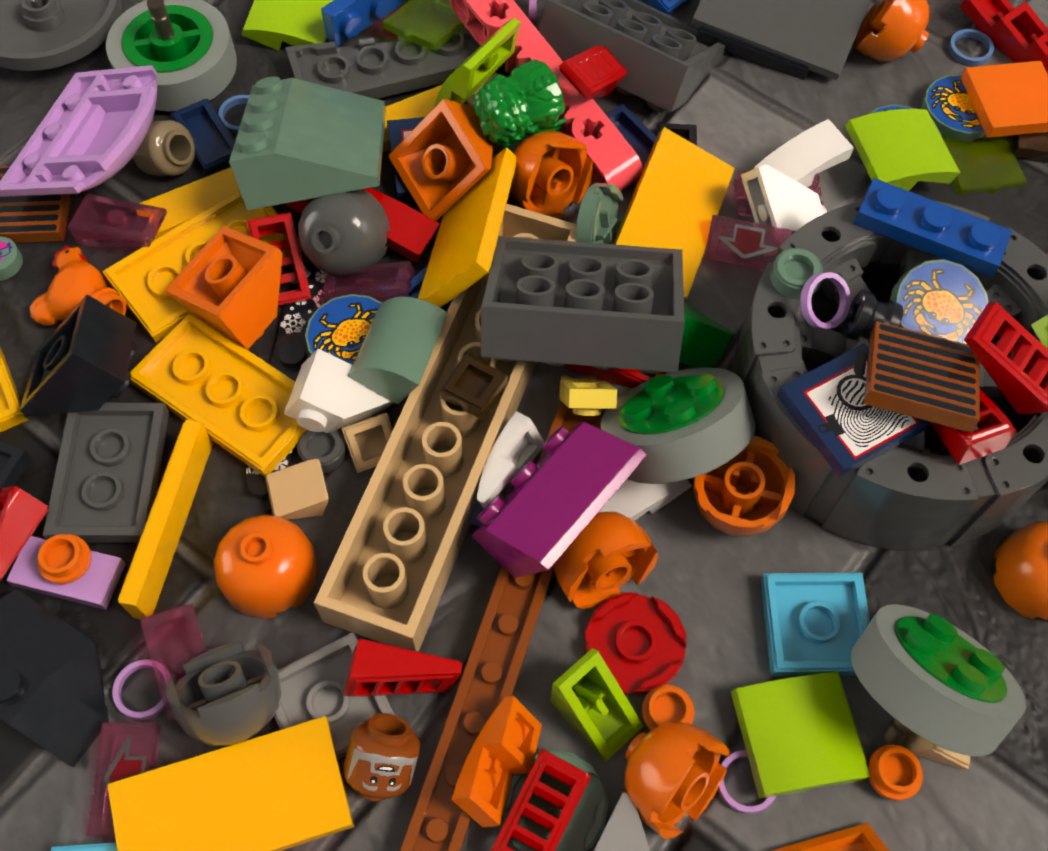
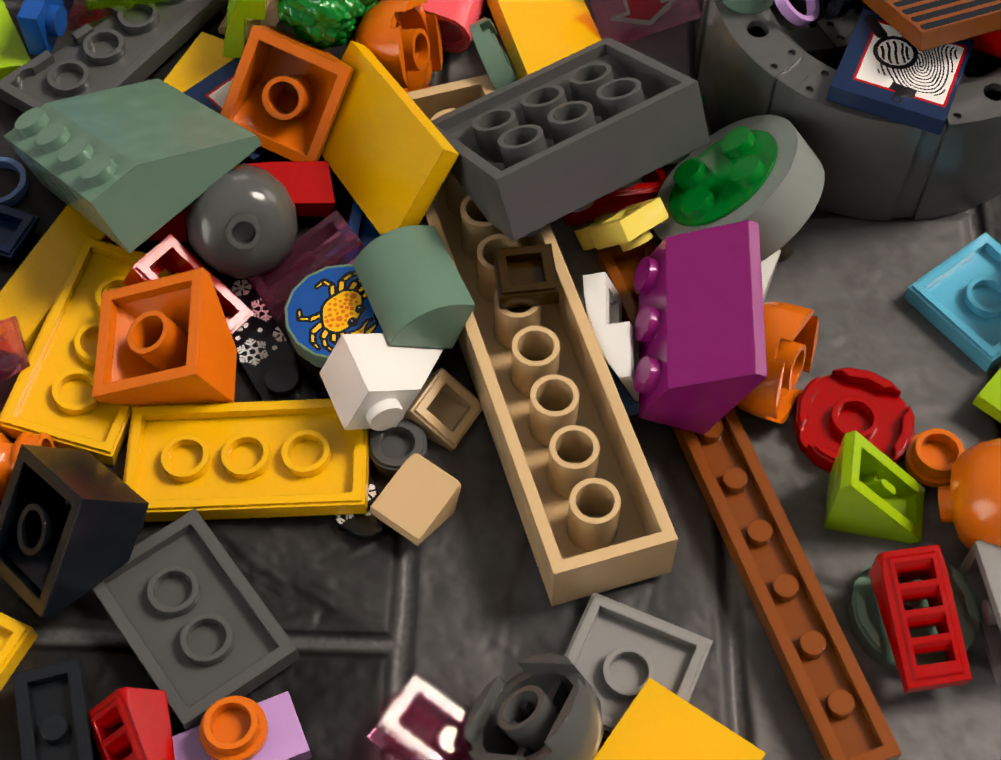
camera: 35 degrees left, 5 degrees down
(166, 521) = (306, 621): yellow tile -> none
(265, 566) = (447, 594): orange cylinder -> none
(381, 757) = (734, 676): dark orange head -> none
(393, 670) = (675, 589): red slope -> none
(500, 751) = (838, 592): orange slope -> none
(747, 491) = (848, 222): orange cylinder -> none

